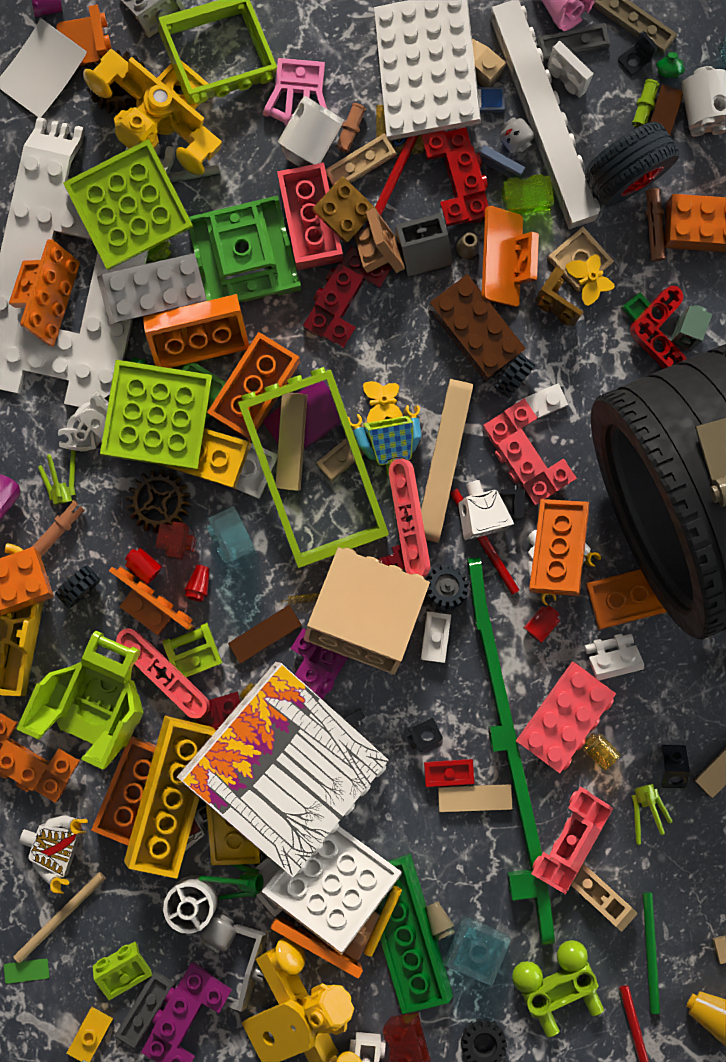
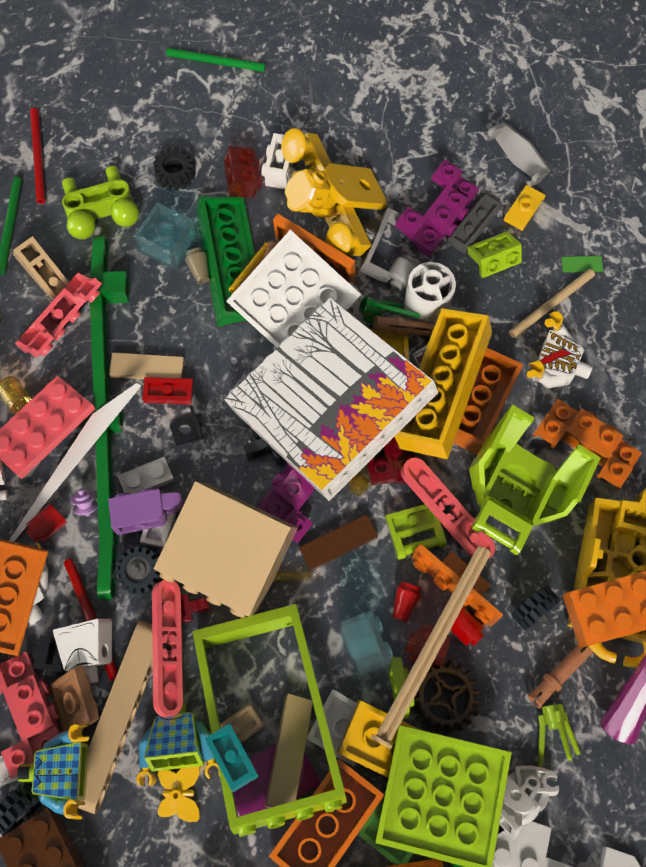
camera: 170 degrees left, 15 degrees down
(169, 537) = (431, 648): none -> tan axle
(196, 495) = (397, 678): none -> lime plate
(213, 867) = (383, 324): none -> nougat pin
(337, 424) = (231, 757): none -> teal plate
(452, 641) = (142, 510): none -> medium lavender hinge
(456, 680) = (146, 476): none -> white plate
(482, 403) = (60, 772): none -> torso
(483, 465) = (74, 699): none -> medium nougat plate
(510, 647) = (84, 502): none -> lavender wheel
(517, 711) = (87, 437): none -> white sticker

